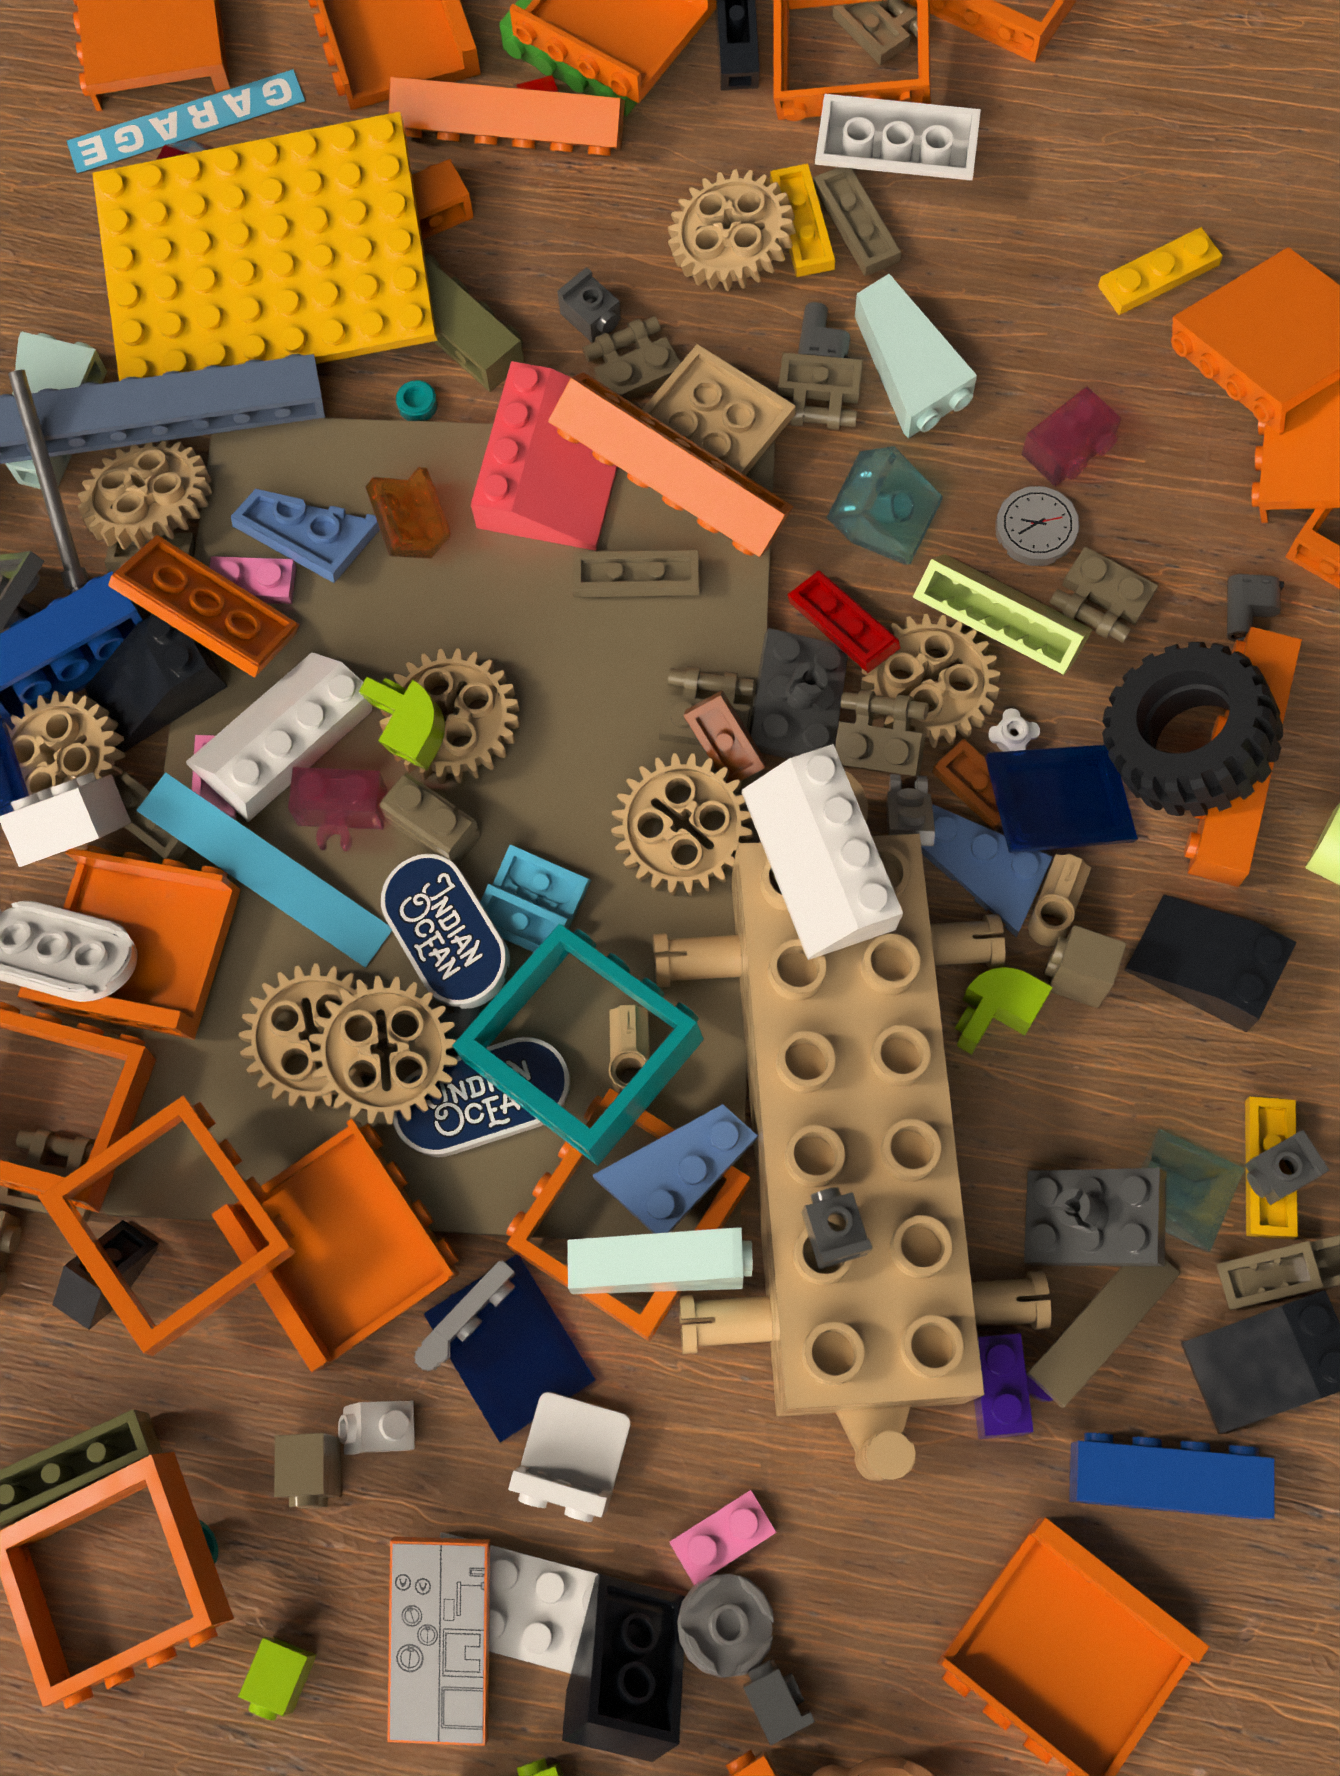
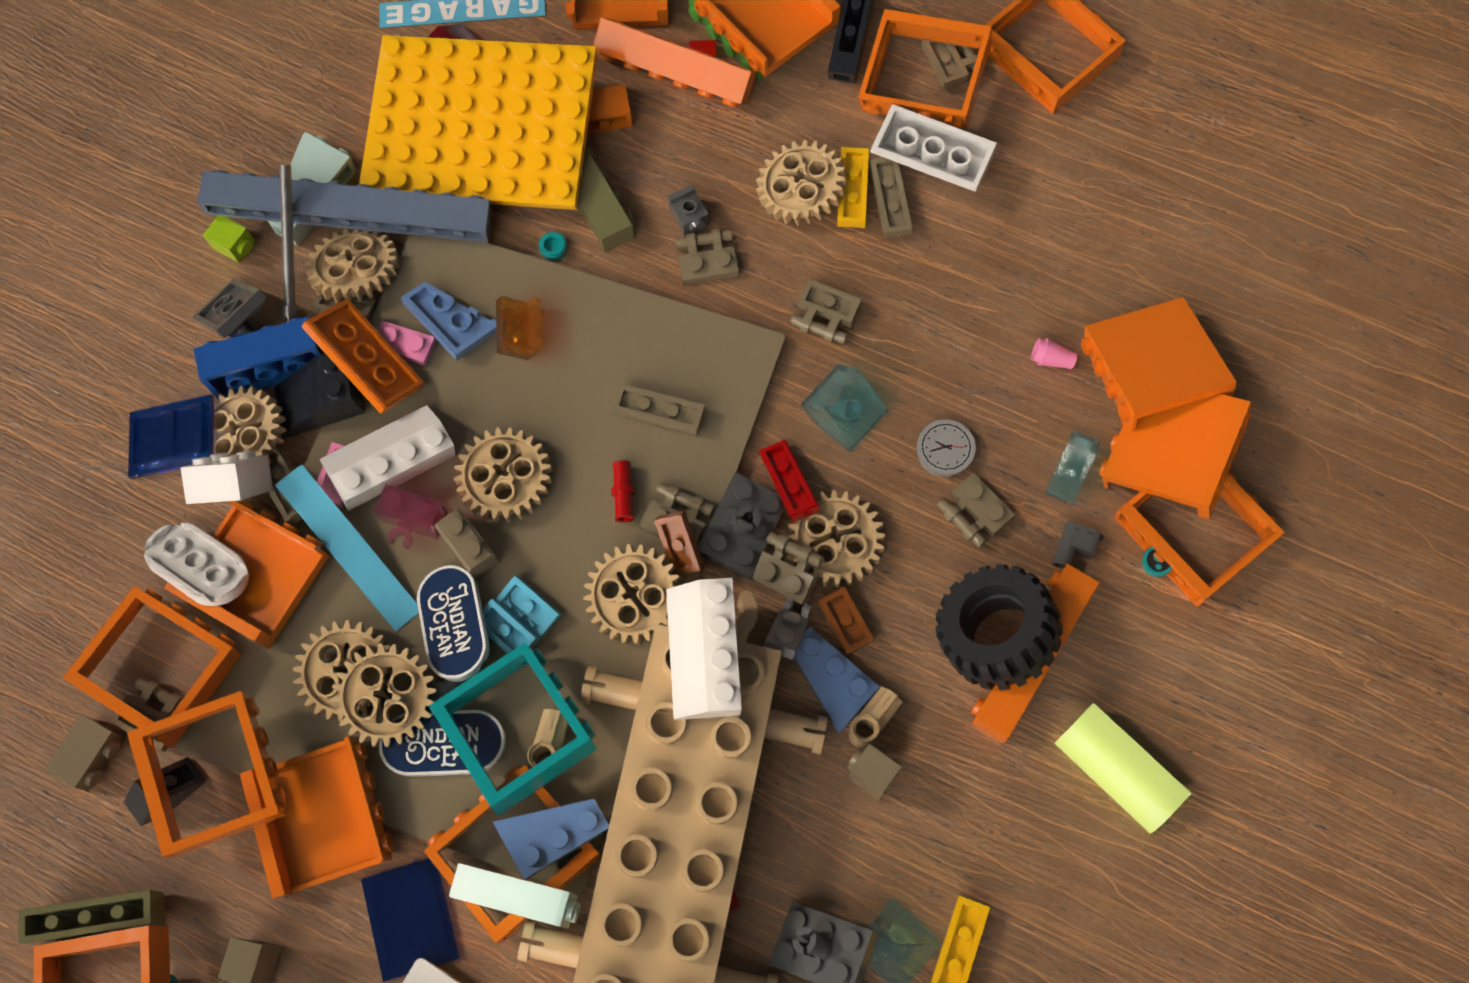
camera: 15 degrees right, 0 degrees up
(377, 1427) = (306, 947): white bracket -> none
(416, 720) = (474, 477): lime brick -> none
(463, 1318) = (382, 891): light grey hinge -> none
(533, 477) = (626, 313): coral slope -> none
(622, 694) = (622, 491): none -> red pin
(669, 464) = (701, 341): orange brick -> none
(721, 409) = (742, 316): tan plate -> none
(818, 339) = (836, 275): dark grey piece -> none
(829, 1245) = (632, 925): dark grey brick -> none
(912, 357) = (897, 308): light aqua slope -> none
(1000, 994) = (813, 773): lime brick -> none
(1002, 613) = (900, 505): yellowish green brick -> none
(1013, 721) = (881, 600): white plate -> none
(1060, 798) = (895, 648): clear blue piece -> none
(1071, 437) = (989, 392): clear pink brick -> none
(1139, 367) = (1052, 354): none -> bright pink cone
(1160, 271) = (1091, 288): yellow plate -> none
(1211, 960) = (964, 790): black slope -> none
(1214, 504) = (1072, 467): none -> clear light blue slope
(1302, 1160) = (977, 951): dark grey brick -> none

